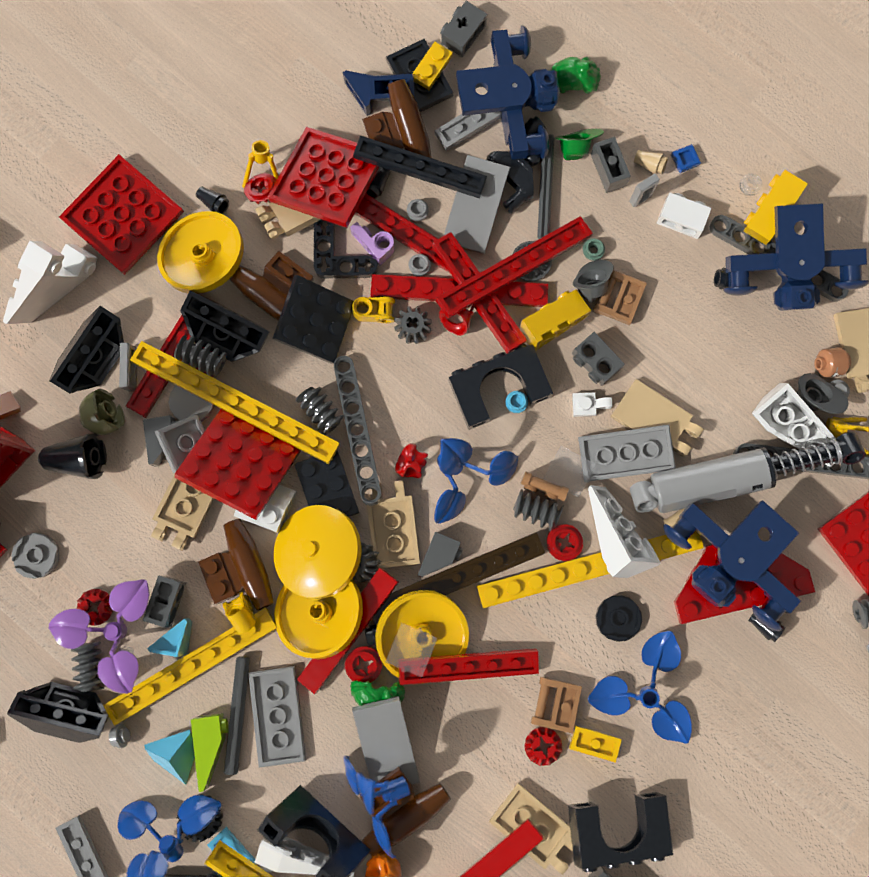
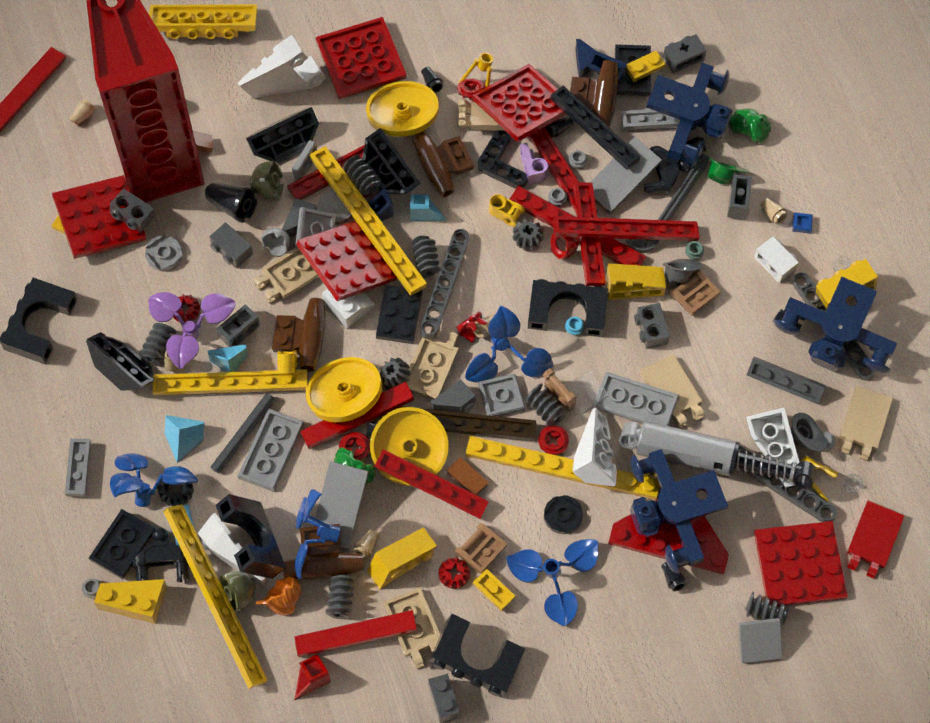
camera: 25 degrees right, 15 degrees down
(102, 509) = (230, 245): none -> dark grey brick
(119, 736) = (151, 402): light grey plate -> none
(150, 477) = (276, 241): none -> light grey hair
(208, 739) = (211, 440): lime slope -> none
(240, 377) = (382, 205): none -> dark blue slope
(284, 356) = (424, 209): none -> medium azure slope
(313, 319) = (457, 193): black plate -> none
(317, 552) = (367, 348): yellow dish -> none
(411, 650) = (396, 445): clear piece -> none
(428, 446) = (482, 330): none -> tan cone
(436, 767) = (366, 544): none -> tan cone
(443, 842) = (338, 596): none -> dark grey piece
(483, 521) = (501, 395): none -> light grey tile
(484, 764) = (401, 557): none -> yellow wedge
(498, 632) = (467, 476): none -> dark orange tile
(586, 404) = (627, 353): white plate -> none
(644, 190) = (754, 225): light grey tile -> none
(764, 345) = (786, 380): none -> dark grey plate
(833, 362) = (831, 417): nougat head -> none

